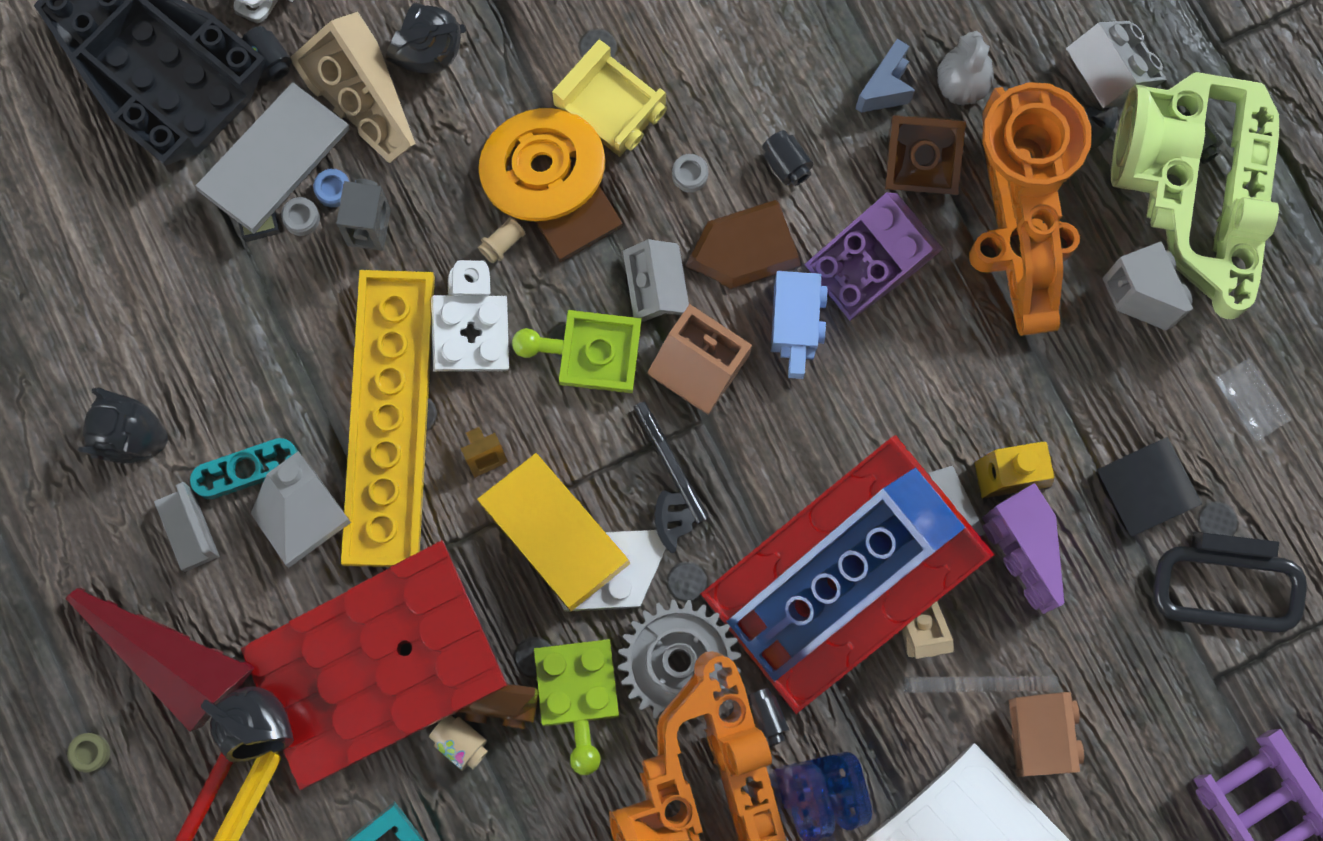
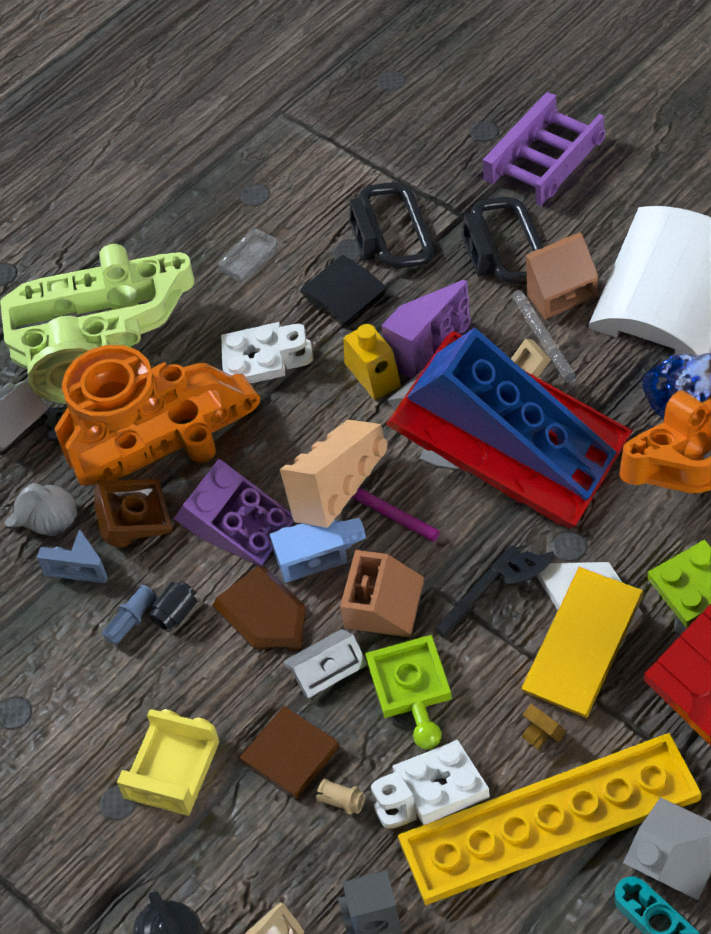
camera: 100 degrees left, 25 degrees down
(543, 194) = (287, 793): light orange piece -> none
(659, 638) = (614, 525): light grey gear -> none
(690, 173) = (213, 677): light grey tile -> none
(797, 114) = (129, 614): none -> sand blue axle
(820, 411) = (396, 514): none -> magenta bar
(868, 366) = (332, 472): none -> light nougat wedge
(1088, 378) = (273, 351): none -> white plate
(1148, 287) = (187, 328): light grey slope -> none
(1151, 675) = (481, 244): none -> black bar

